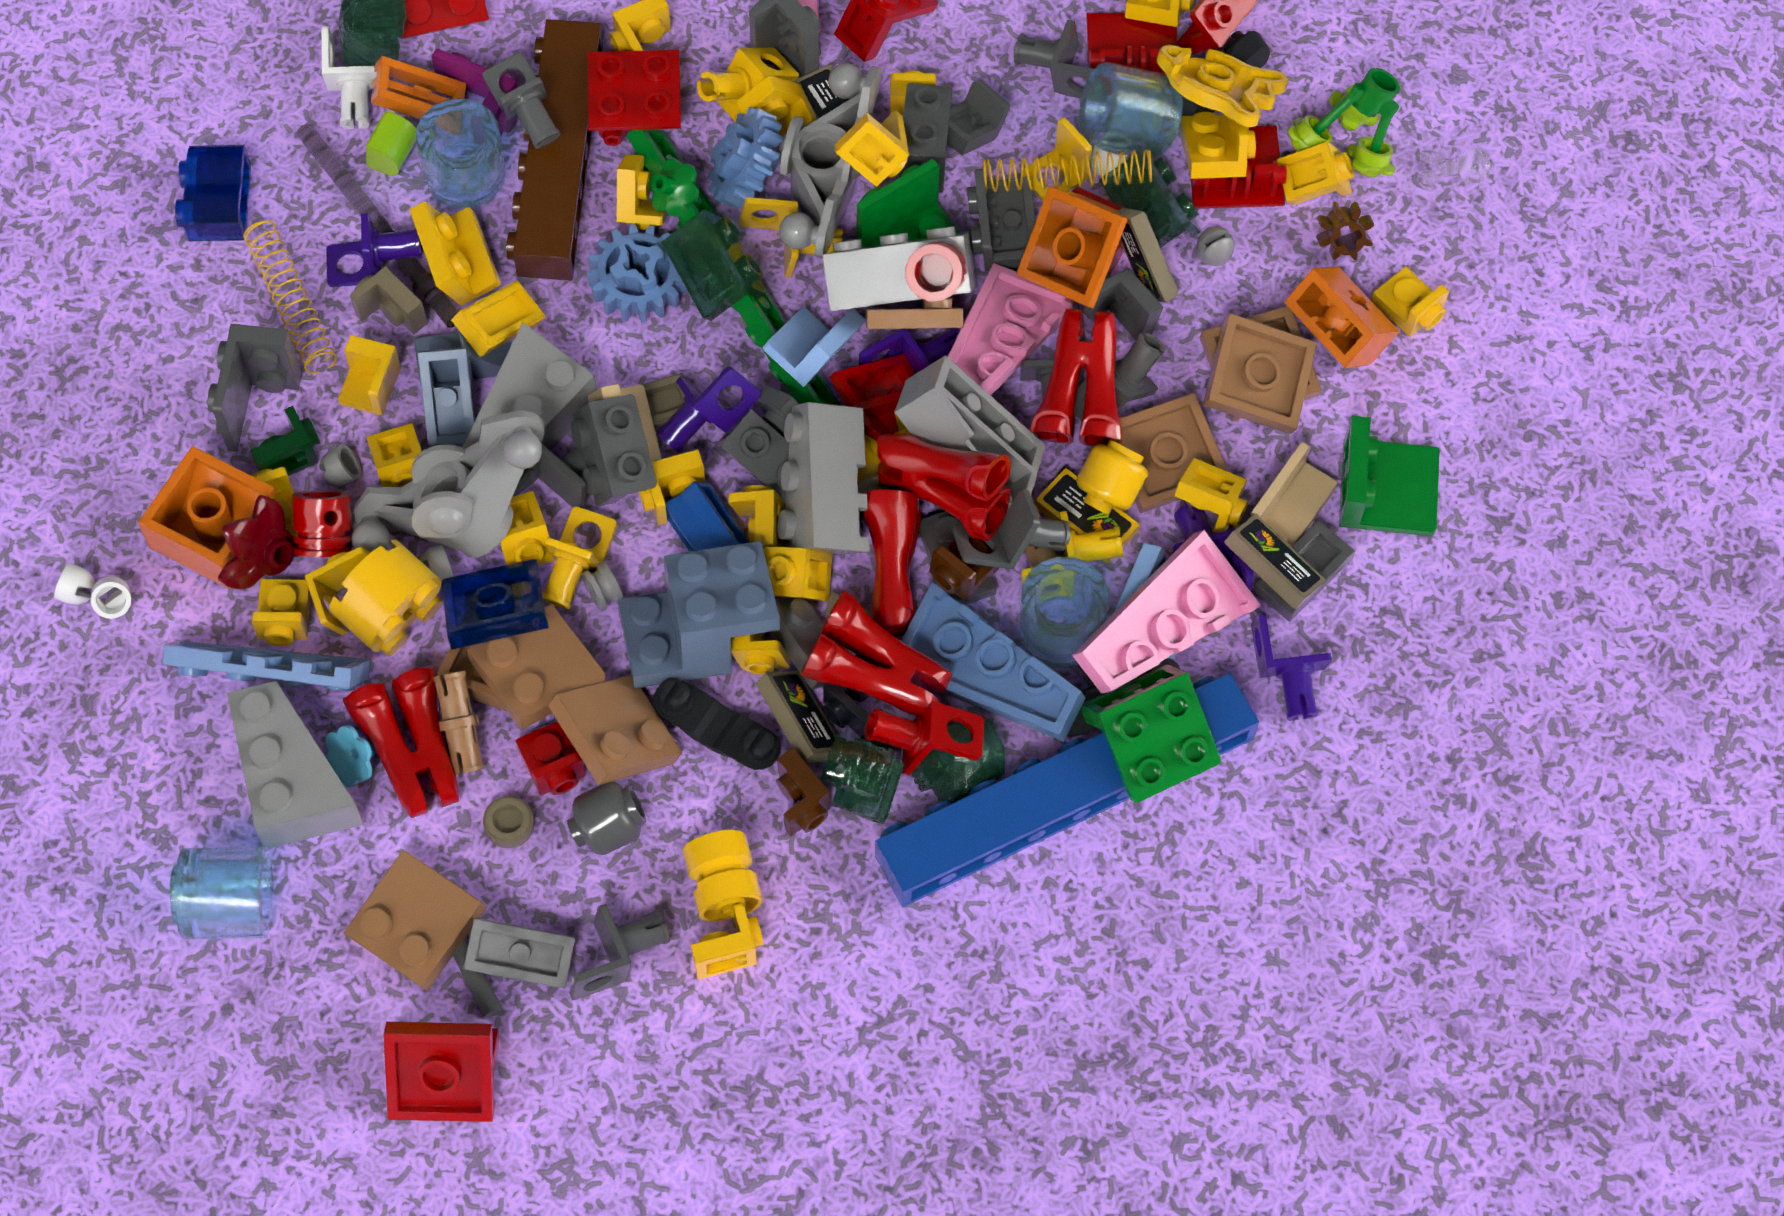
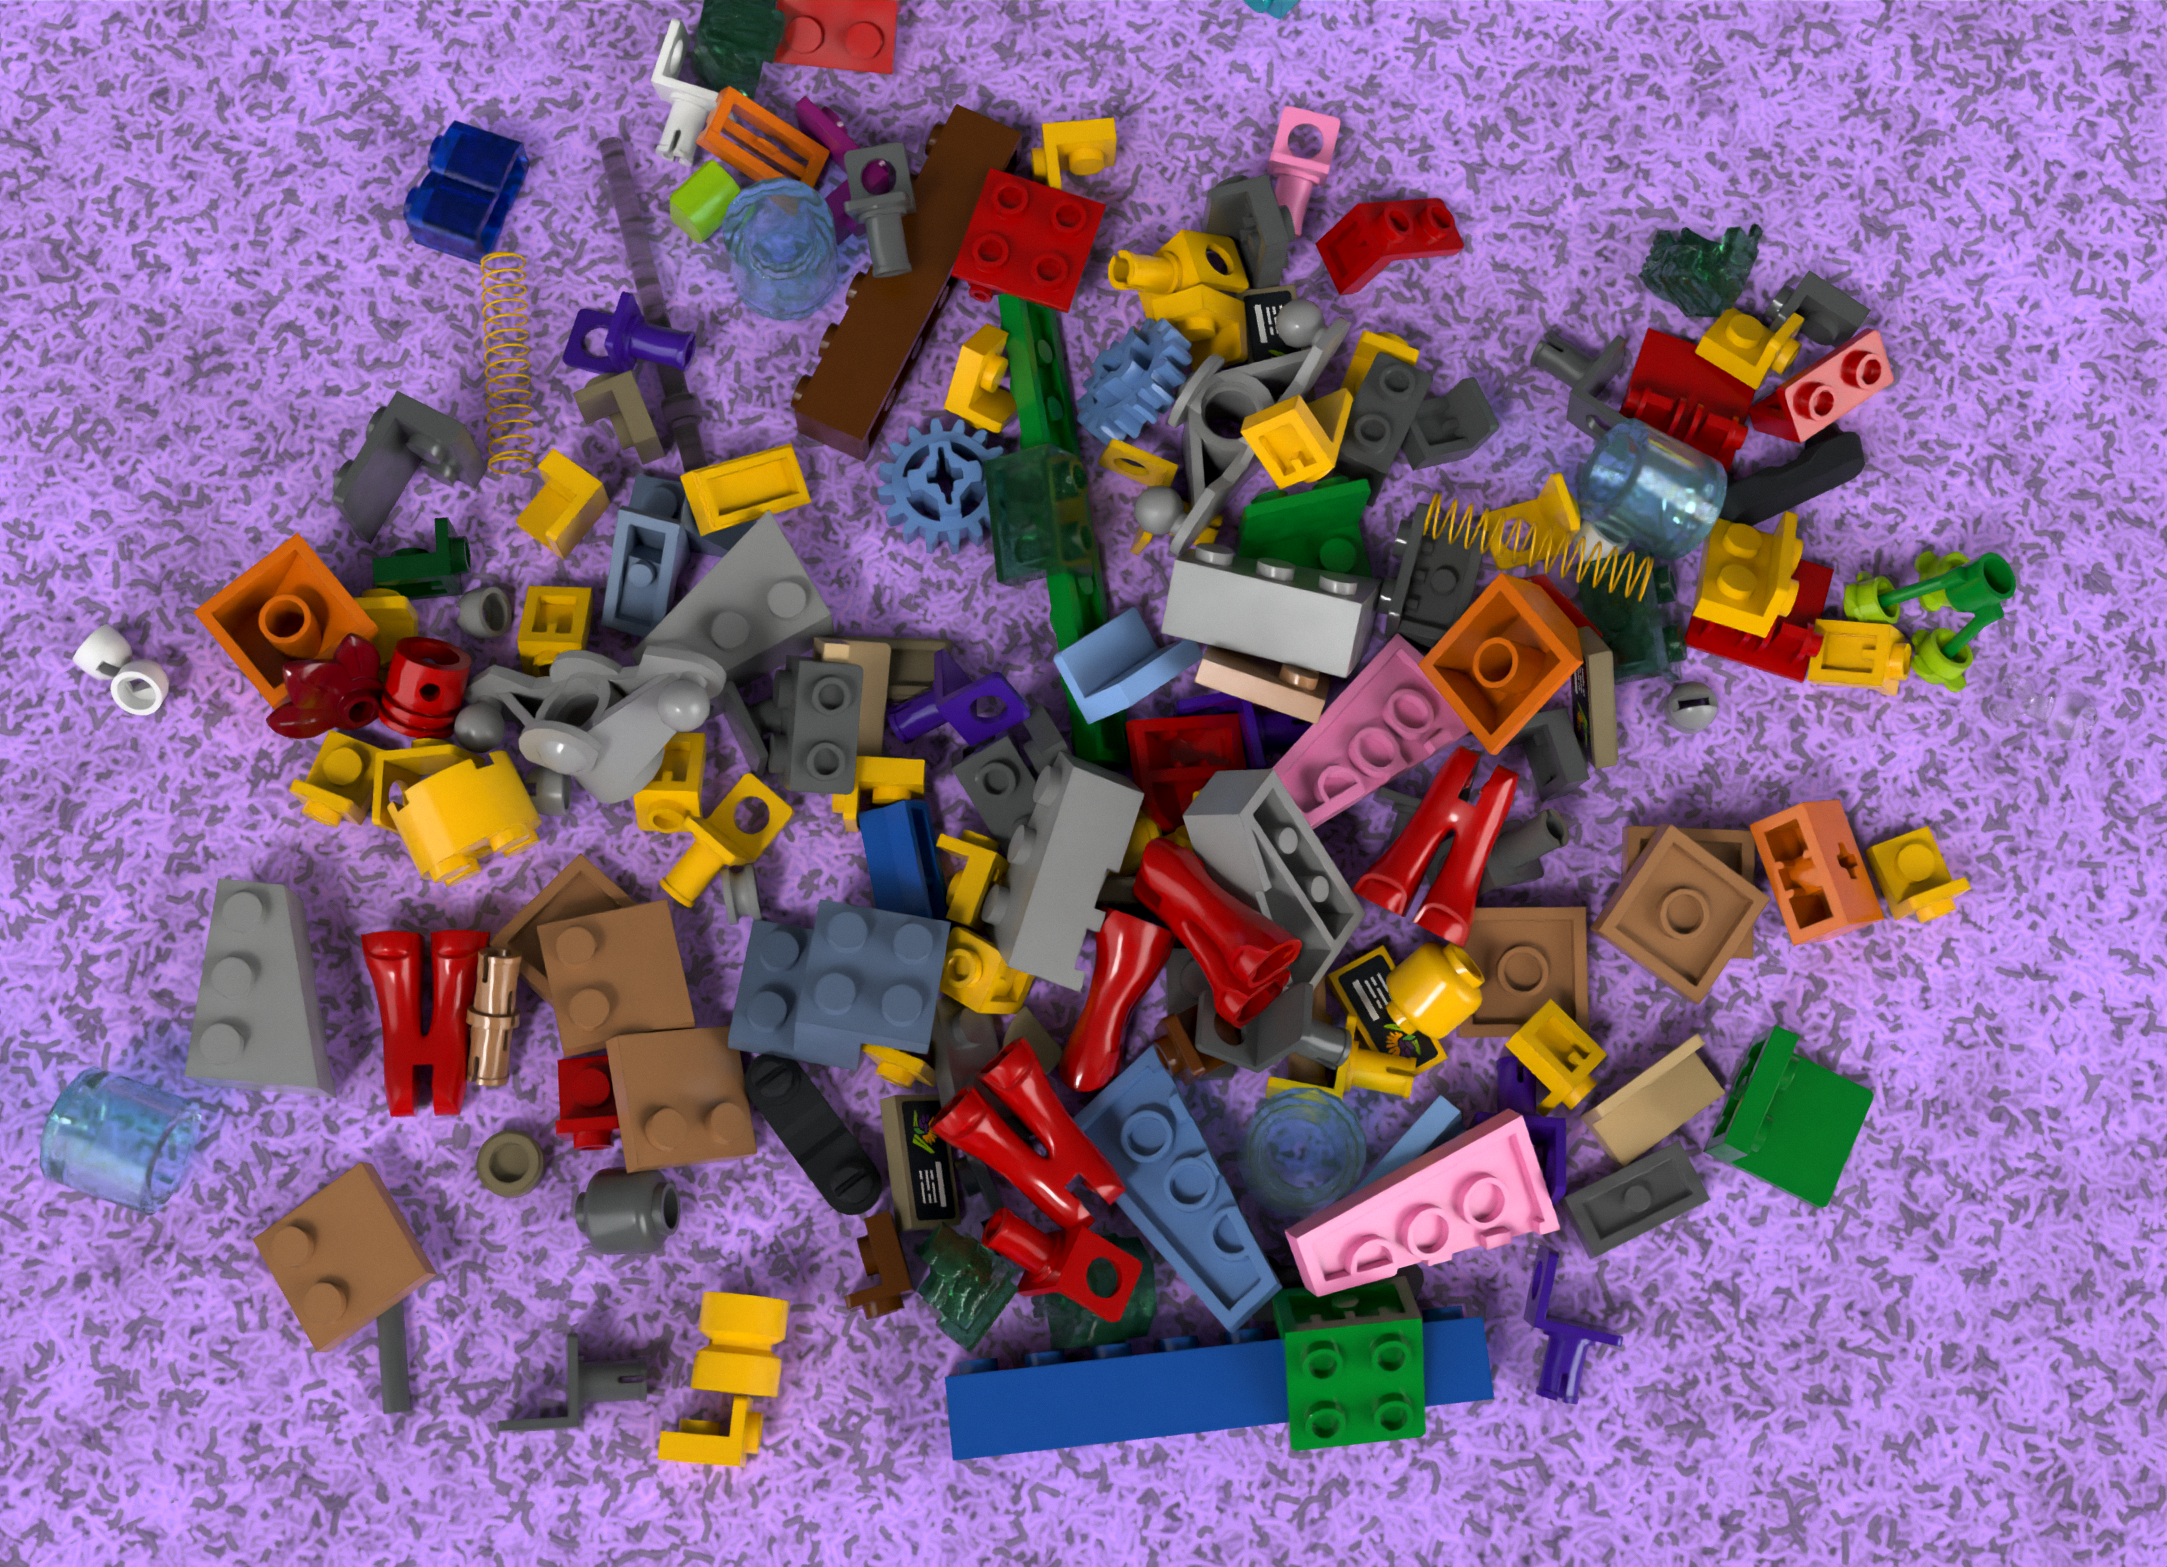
camera: 15 degrees right, 10 degrees up
(283, 666) = (309, 863): medium blue wing -> none
(349, 755) = (348, 1006): medium azure plant -> none
(440, 1071) = (298, 1469): red bracket -> none
(456, 252) = (726, 378): yellow bracket -> none
(494, 604) = (594, 875): clear blue tile -> none
(519, 953) = (452, 1351): flat silver plate -> none
(674, 187) = (1029, 391): green plant -> none
(935, 271) = (1307, 642): piece -> none
(1222, 83) = (1784, 501): yellow tile -> none
(1275, 561) = (1599, 1187): tile -> none
(1349, 243) = (1867, 751): reddish brown gear -> none

